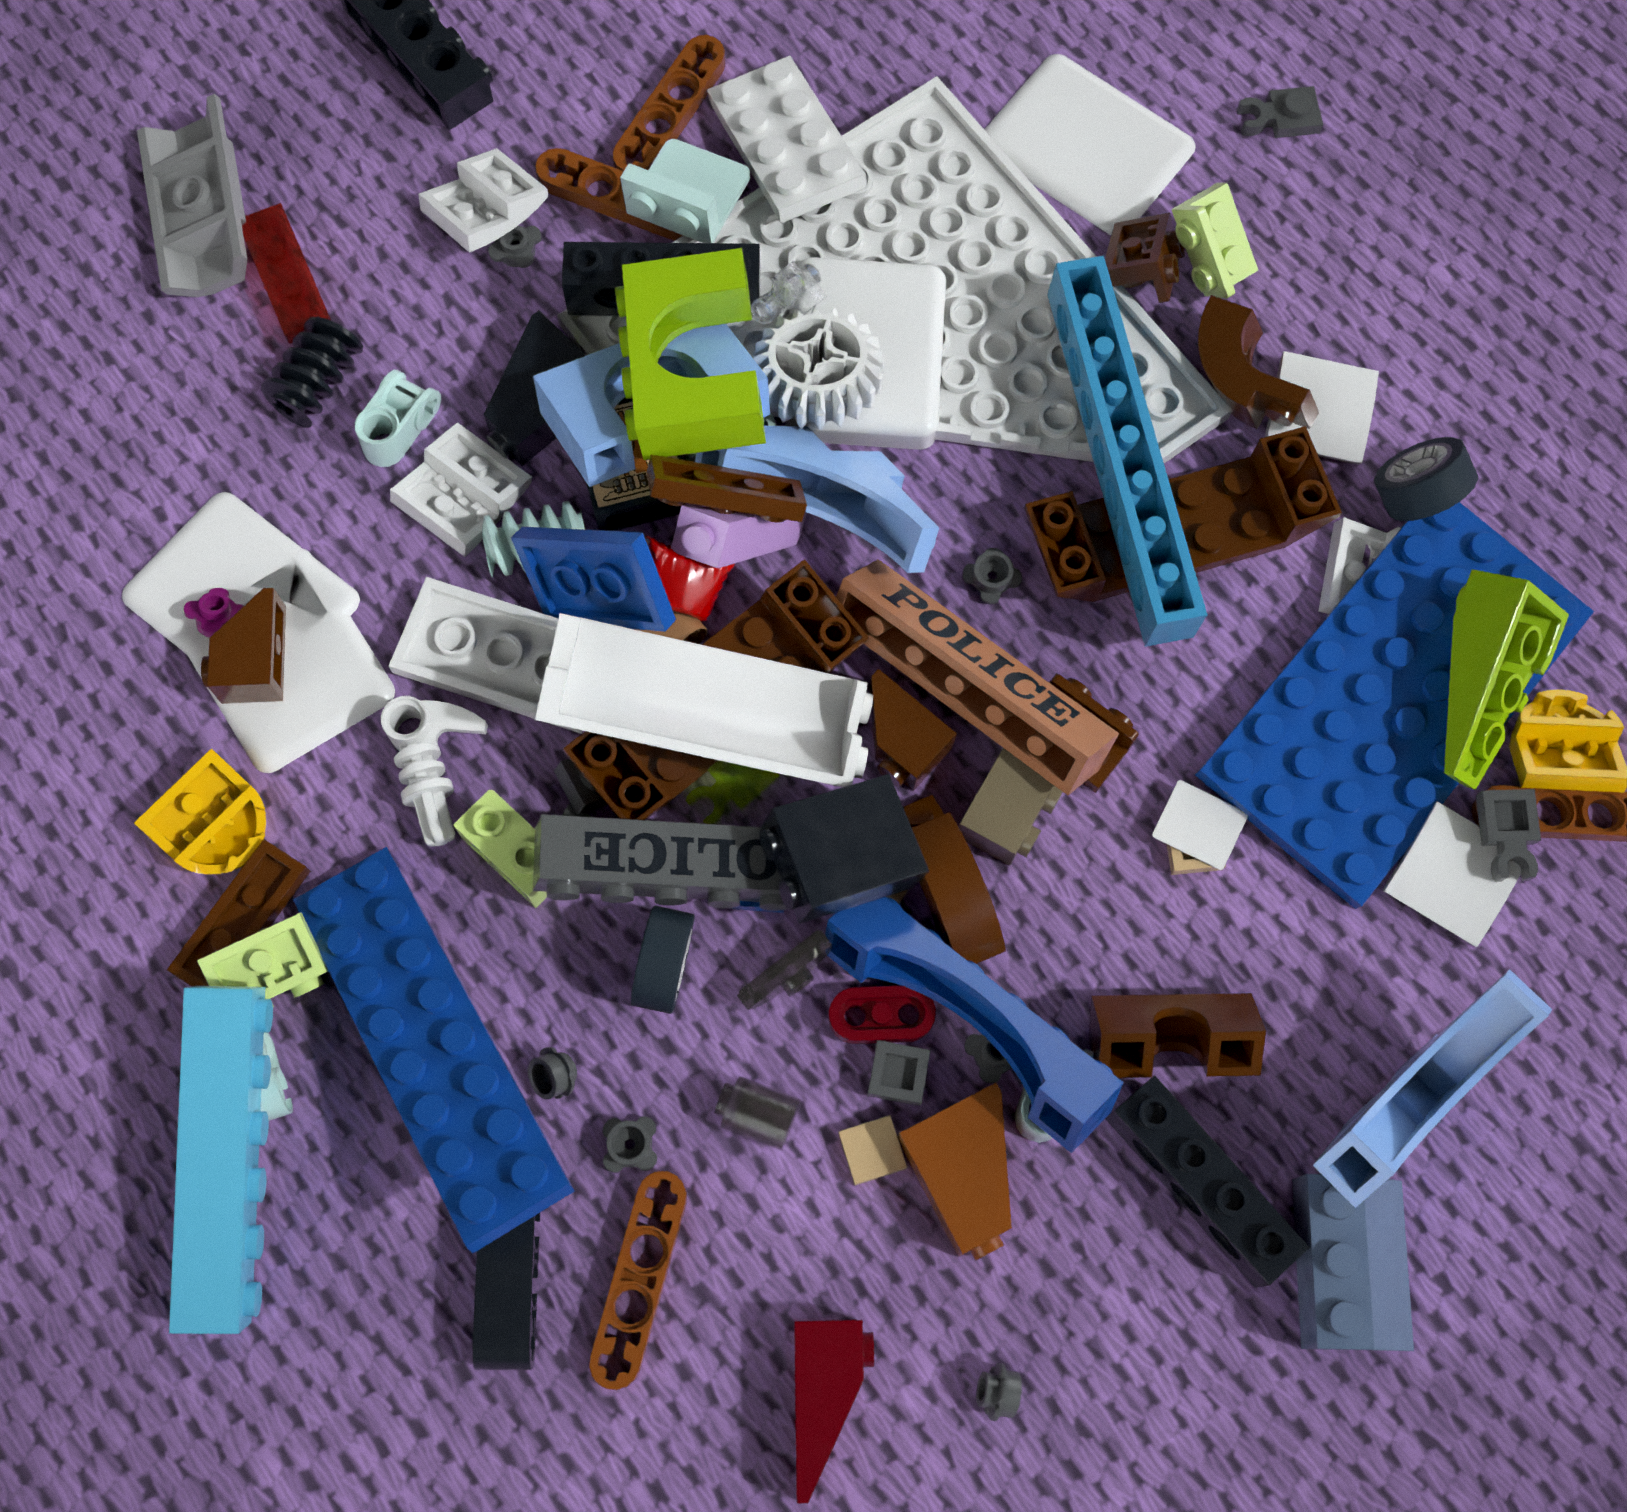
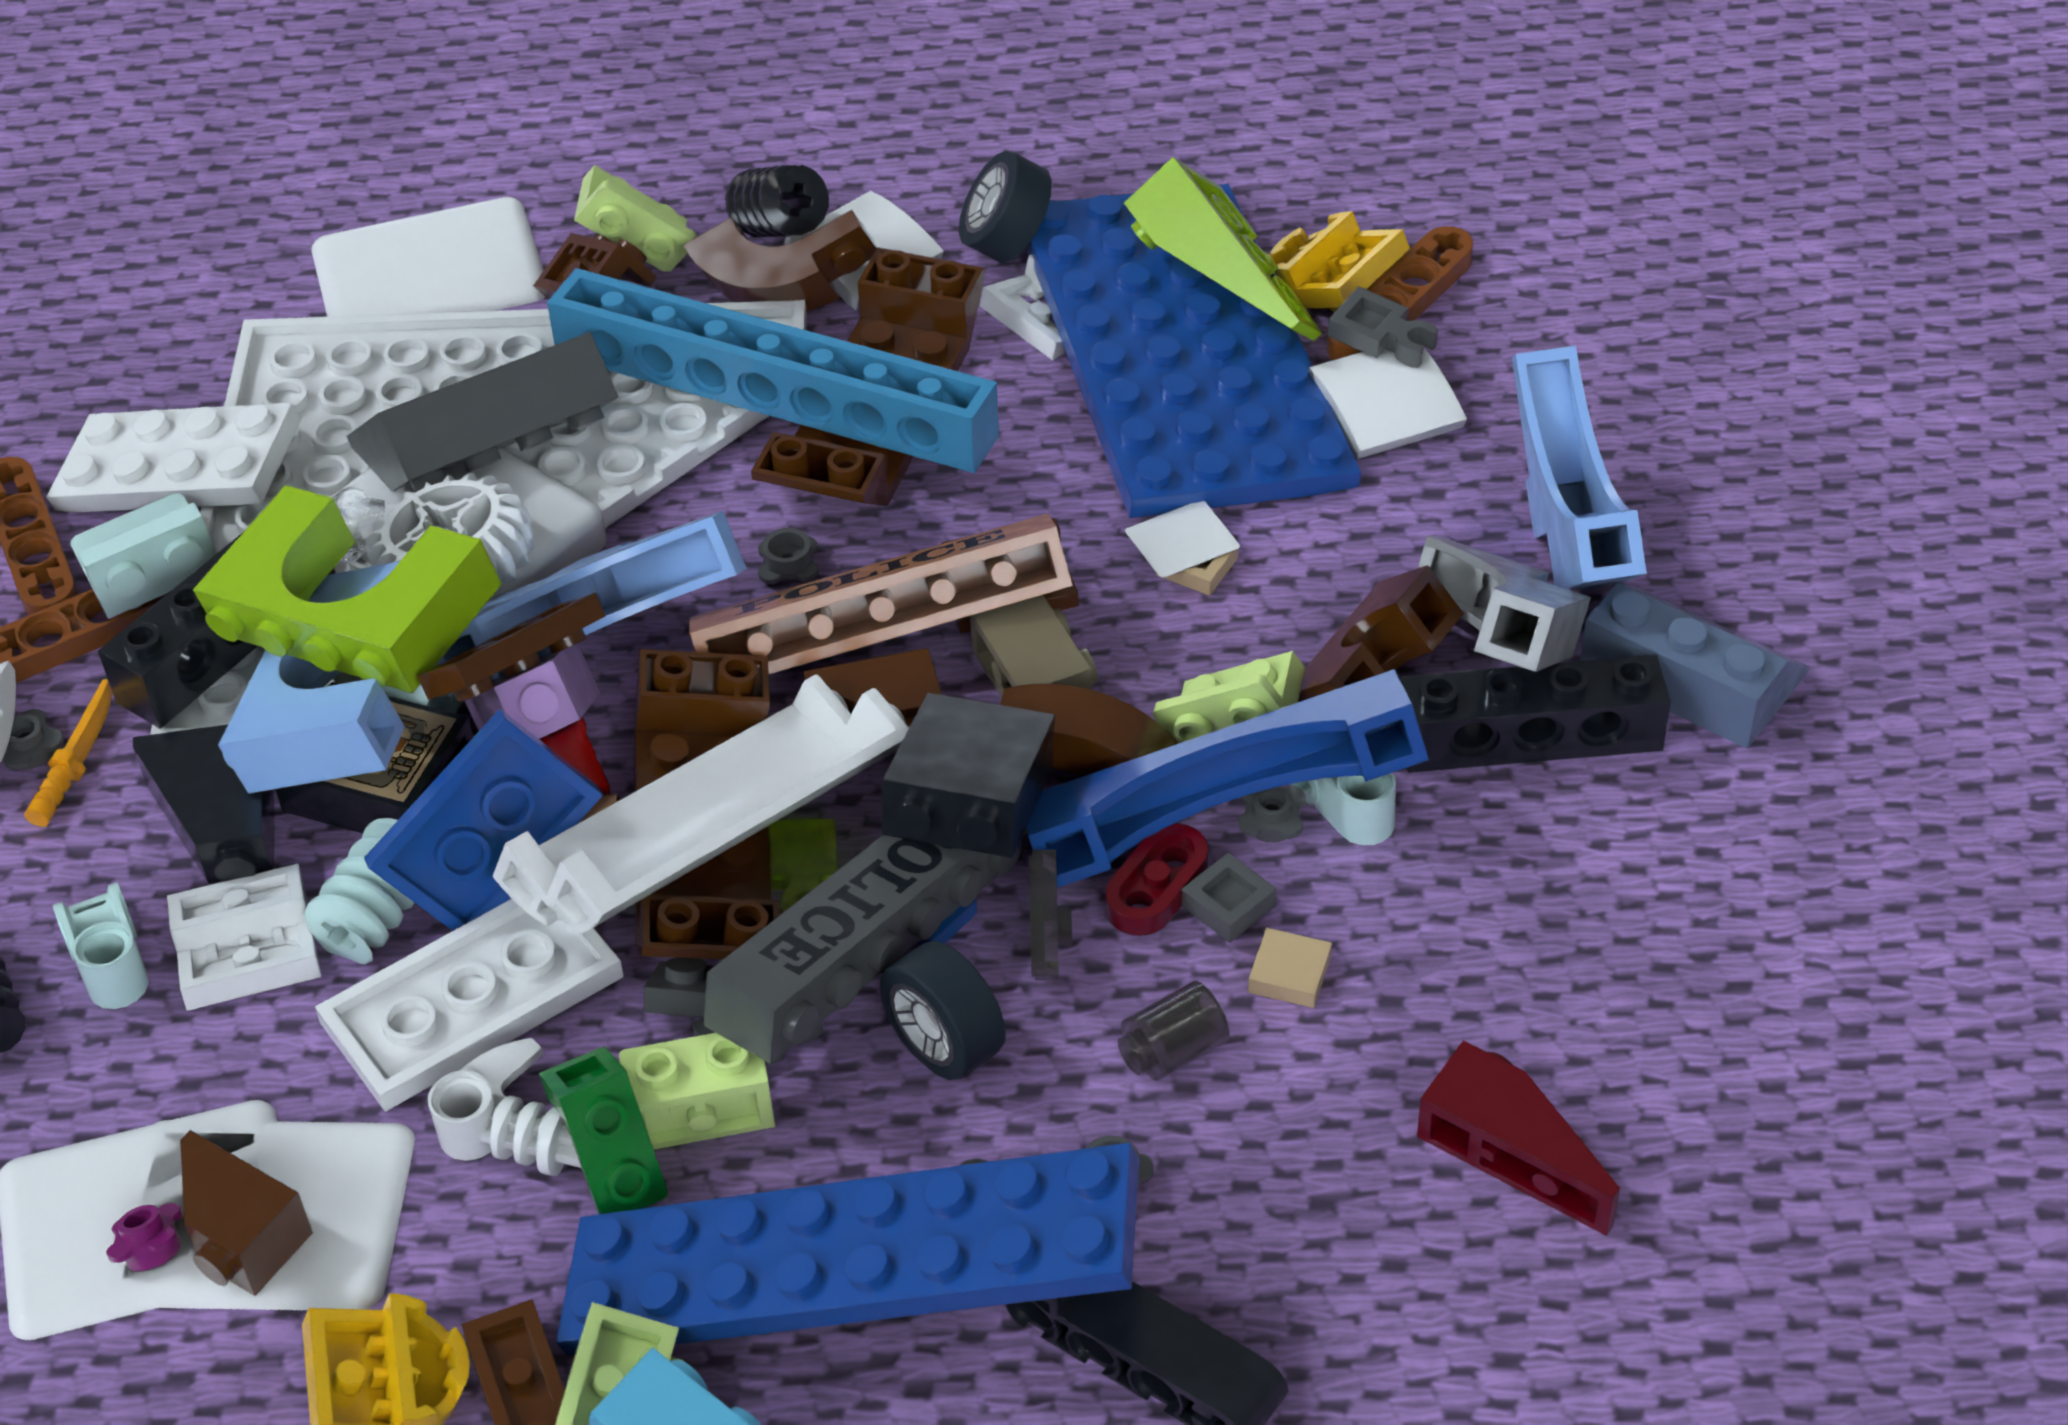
camera: 50 degrees left, 25 degrees down
(433, 815) = (606, 1131): none -> green bracket
(512, 283) = (68, 762): none -> light orange piece
(632, 1277) = (1273, 1237): dark orange beam -> none
(943, 300) = (485, 413): none -> dark grey slope
(964, 1170) = (1377, 893): dark orange slope -> none
(999, 1392) = (1620, 988): dark grey plate -> none
(1062, 969) = (1231, 696): none -> yellowish green bracket
(1274, 1128) = (1509, 603): none -> light grey arch
(1286, 110) = (556, 120): dark grey plate -> none
(1304, 322) = (777, 200): none -> black piece

